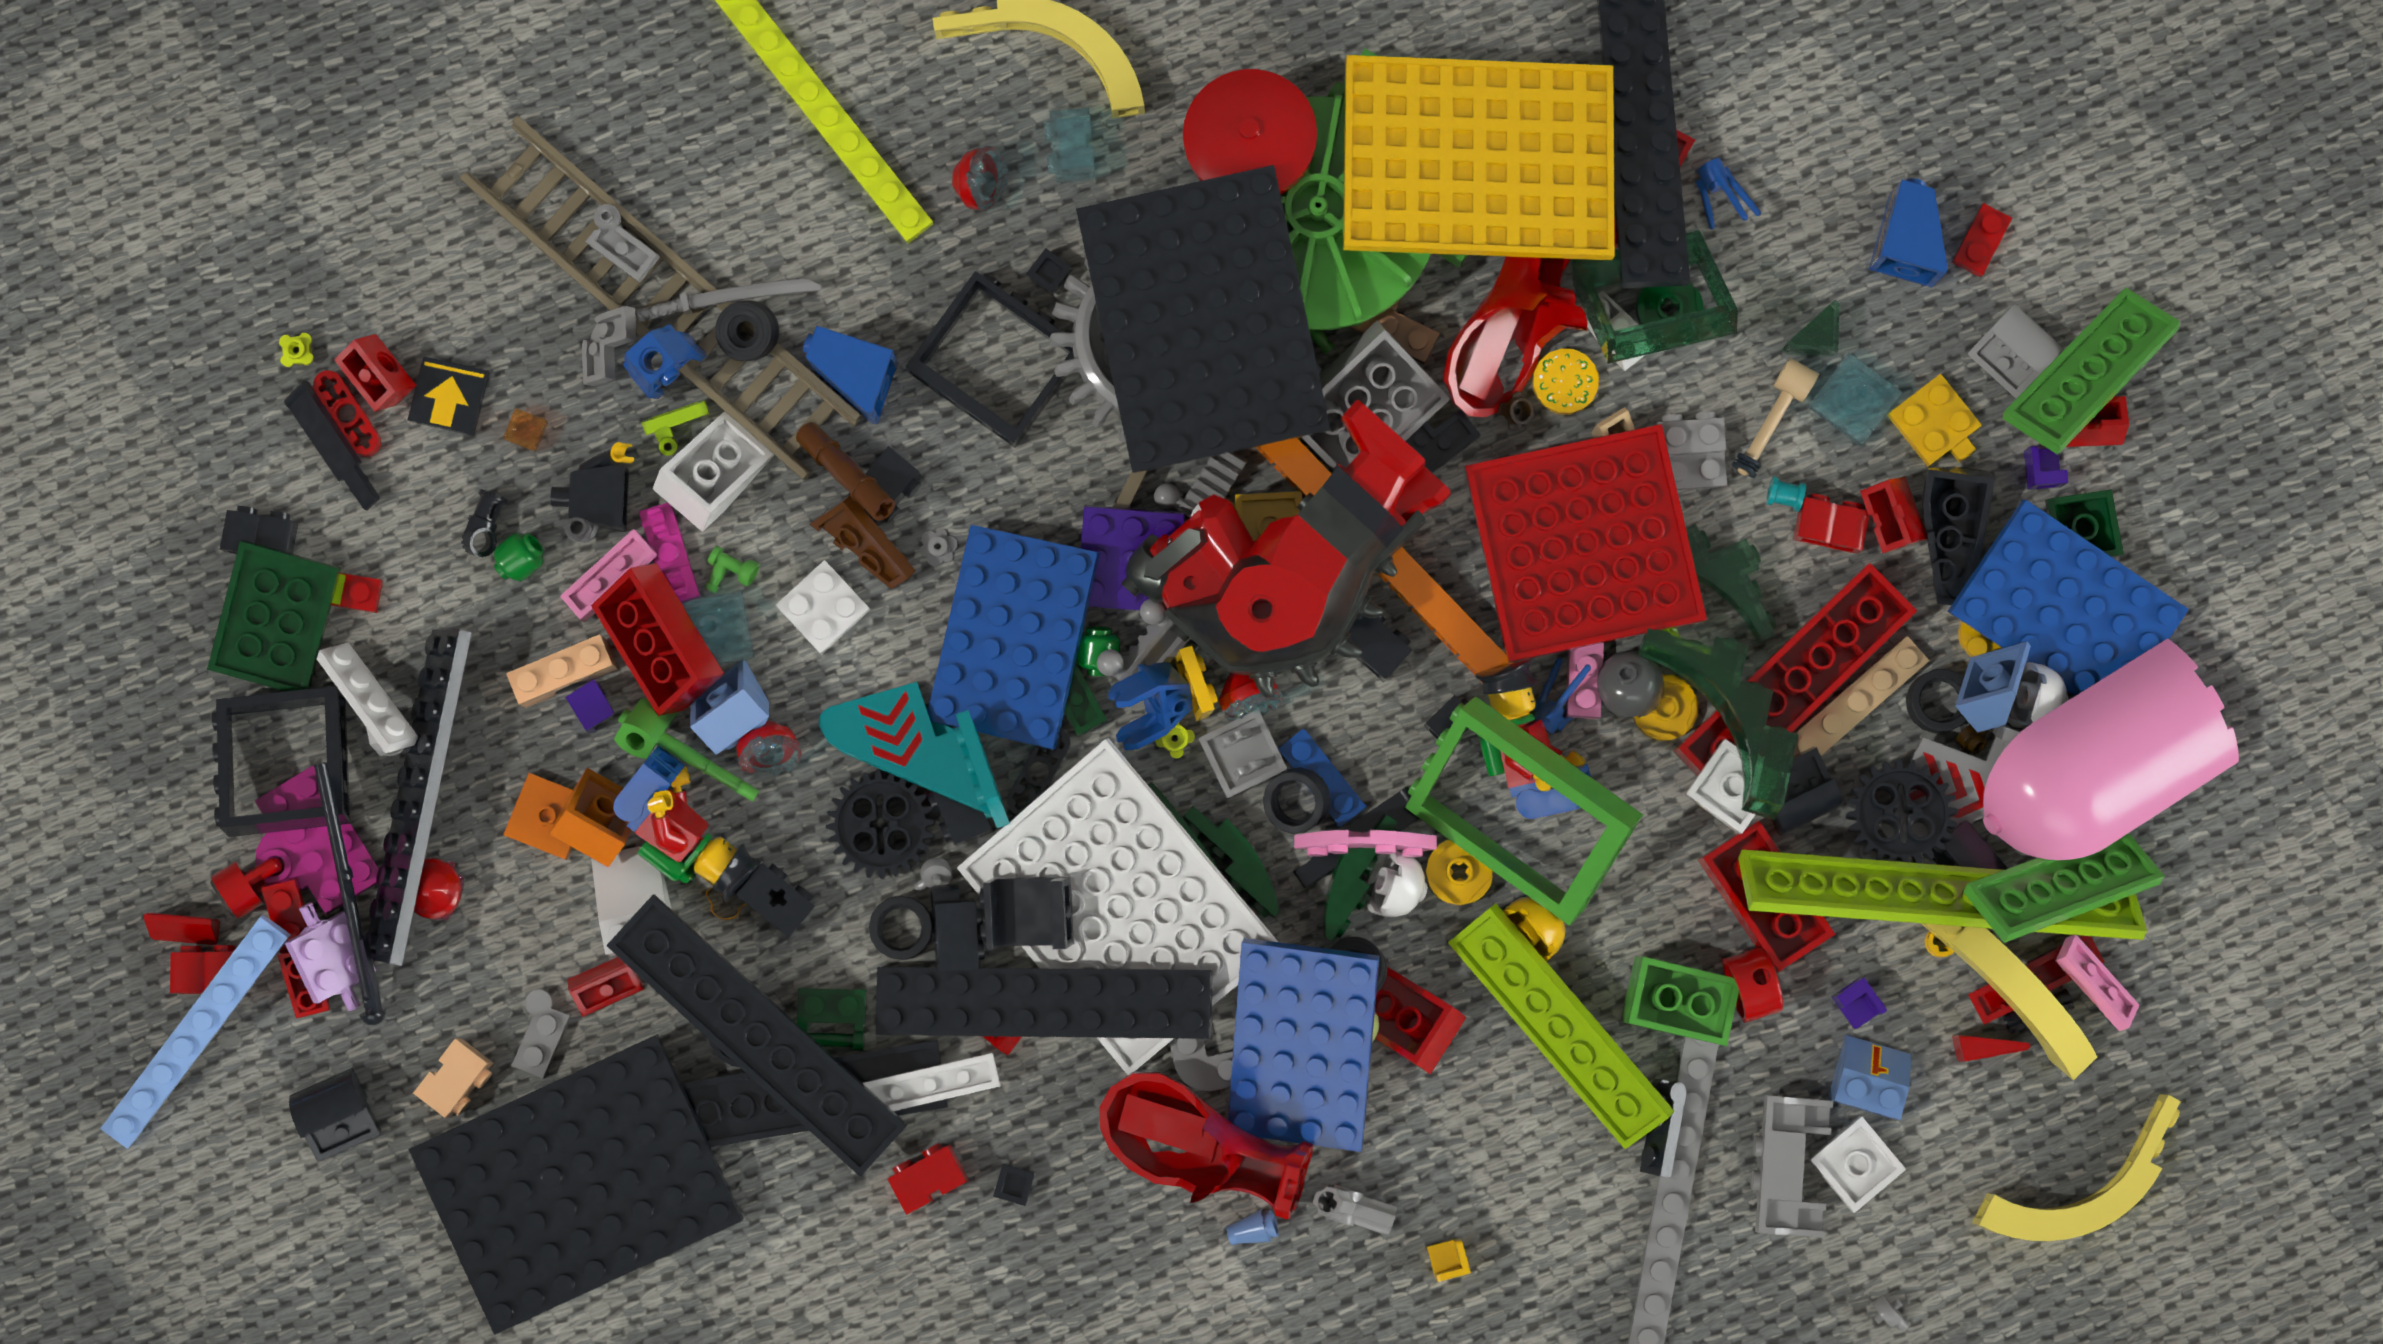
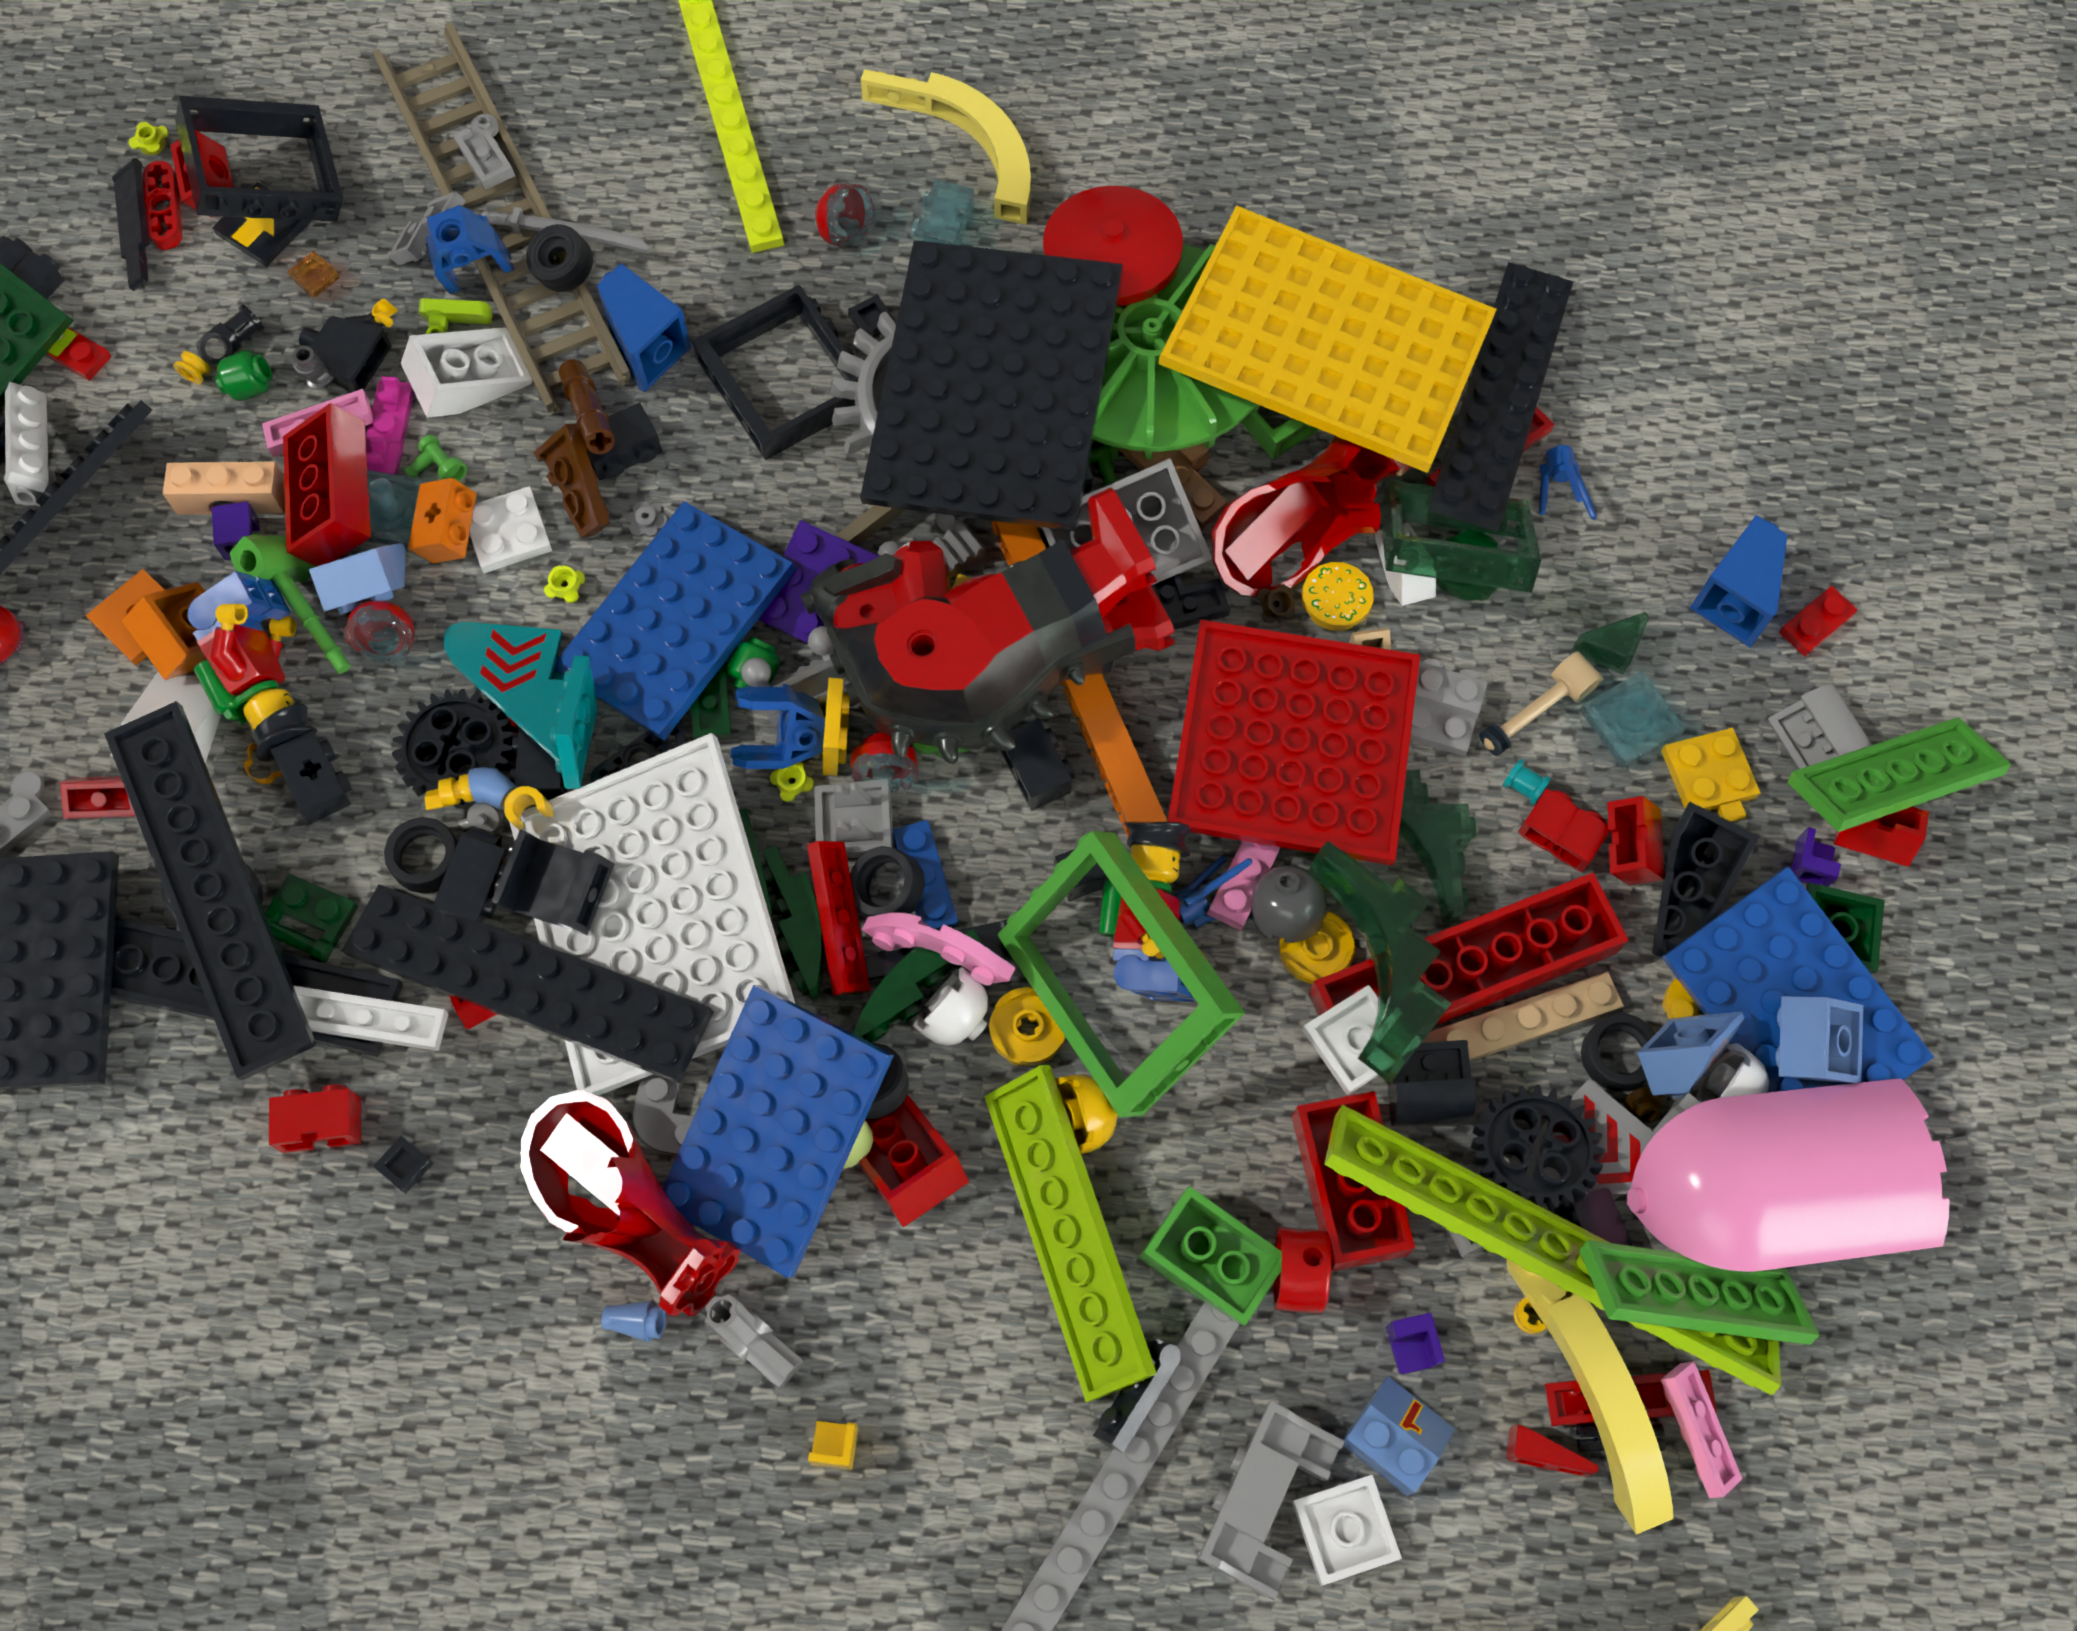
camera: 20 degrees right, 15 degrees down
(402, 297) = (260, 119): none -> black window
(467, 566) = (192, 367): none -> yellow bush
(769, 626) = (442, 520): none -> orange brick
(905, 631) = (564, 574): none -> neon yellow plate
(931, 854) = (488, 787): none -> yellow piece
(1271, 846) = (838, 917): none -> red plate
(2096, 638) = (1820, 1039): none -> medium blue slope

